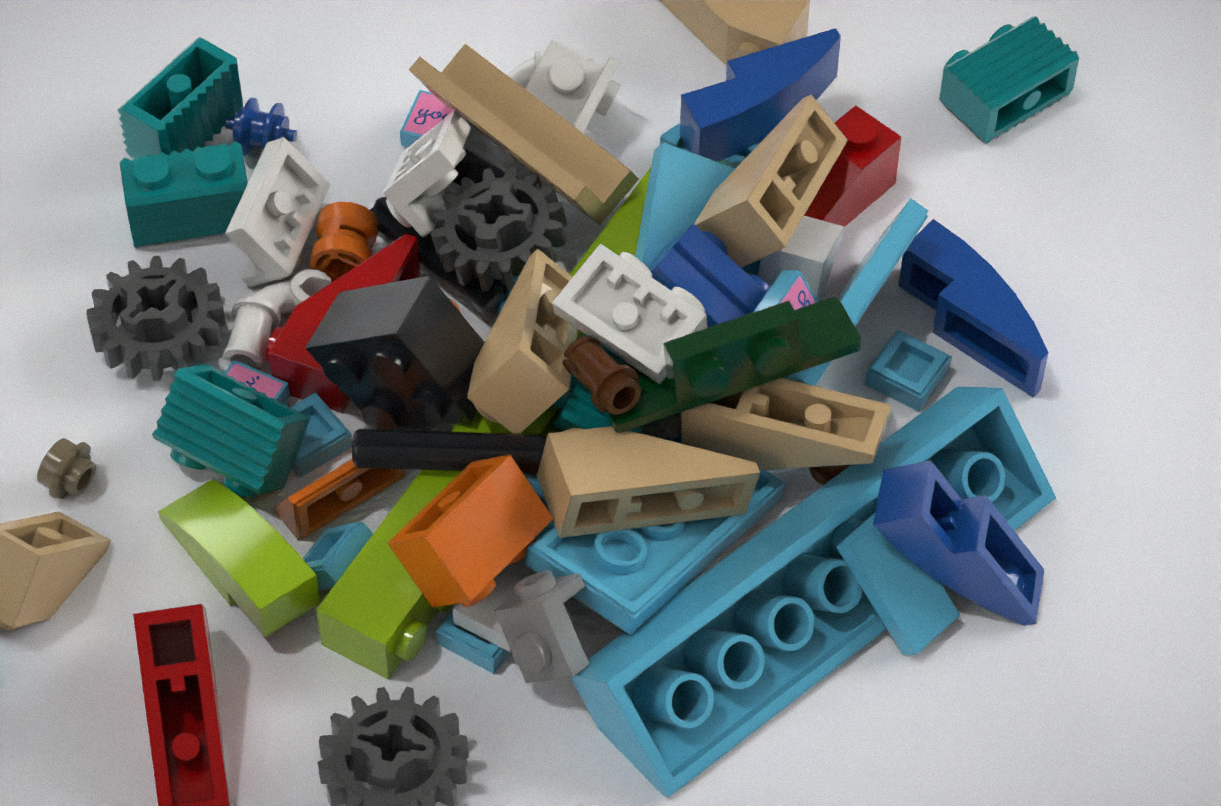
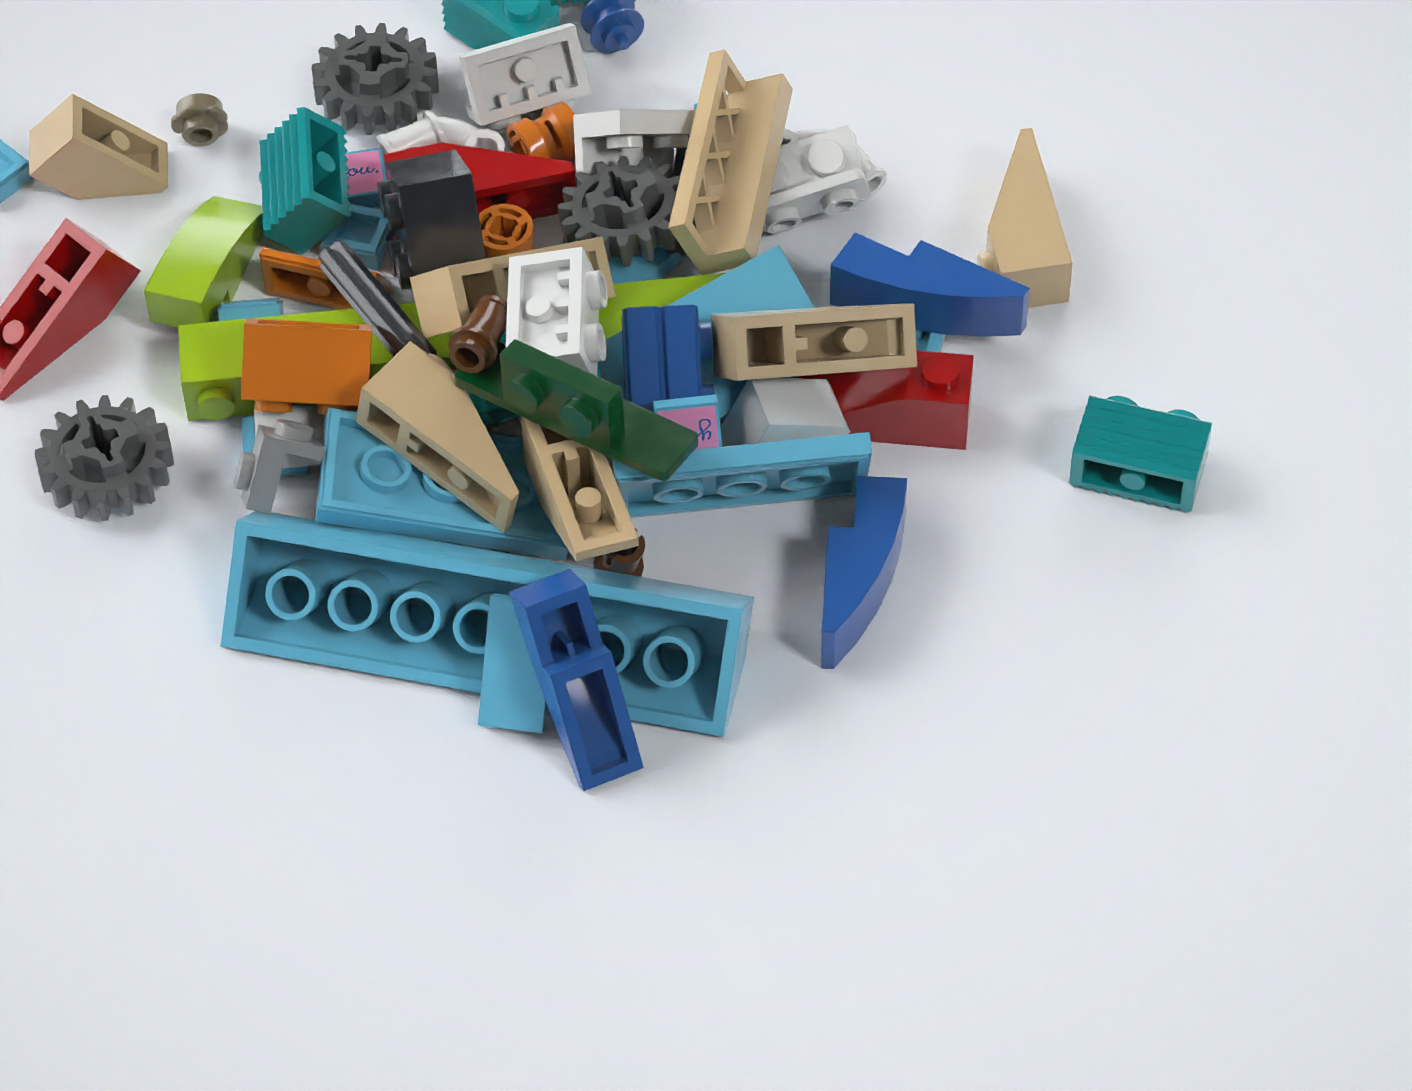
camera: 55 degrees right, 0 degrees up
(908, 370) = (764, 565): medium azure tile -> none

